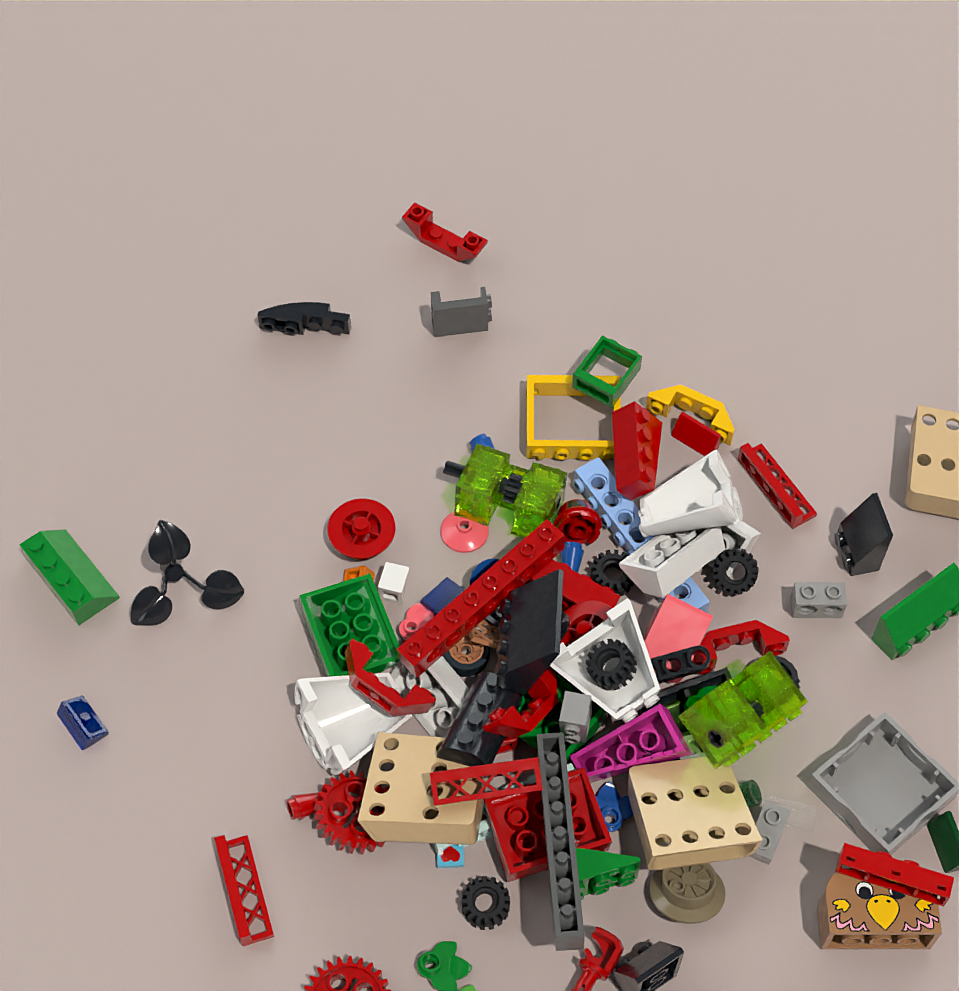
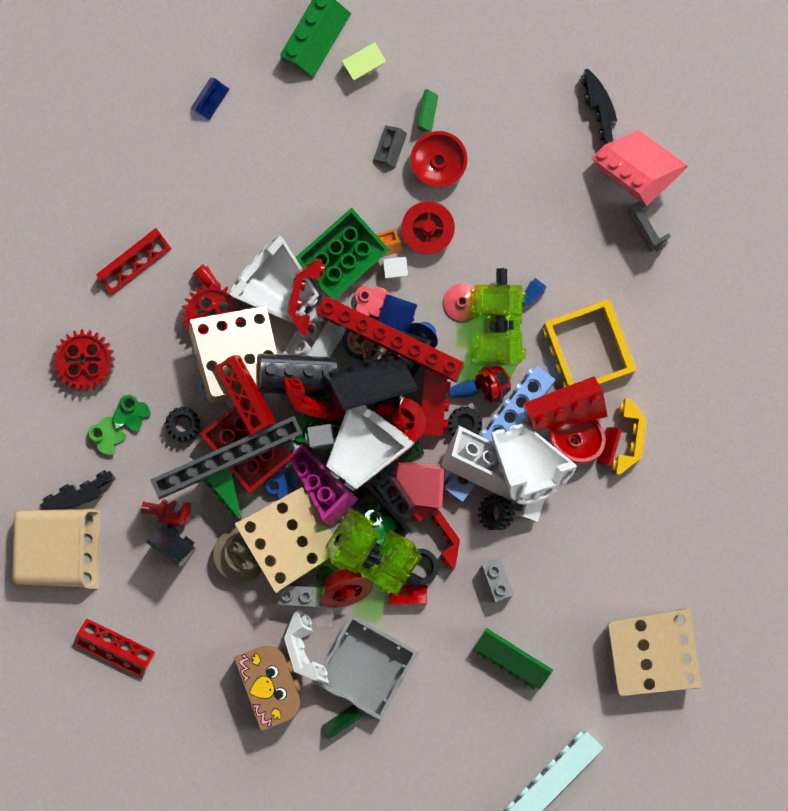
camera: 70 degrees right, 25 degrees up
(130, 530) = (364, 61): none -> yellowish green panel
(167, 547) = (345, 103): black plant -> none
(221, 489) = (427, 111): none -> green slope
(243, 542) = (390, 146): none -> dark grey slope
(286, 479) = (439, 146): none -> red dish
(392, 296) = (639, 165): none -> coral slope
(455, 247) = (723, 180): red slope -> none
(596, 387) = (611, 357): green window -> none
(617, 675) = (367, 438): black tyre -> none
(678, 453) = (586, 435): none -> red dish
(774, 488) = (584, 517): red fence -> none
(775, 769) = (345, 588): none -> red wheel
(803, 723) = (409, 595): none -> red slope
(809, 848) = (299, 628): none -> white slope
(864, 537) = (557, 597): black slope -> none
(907, 874) = (287, 677): red piece -> none

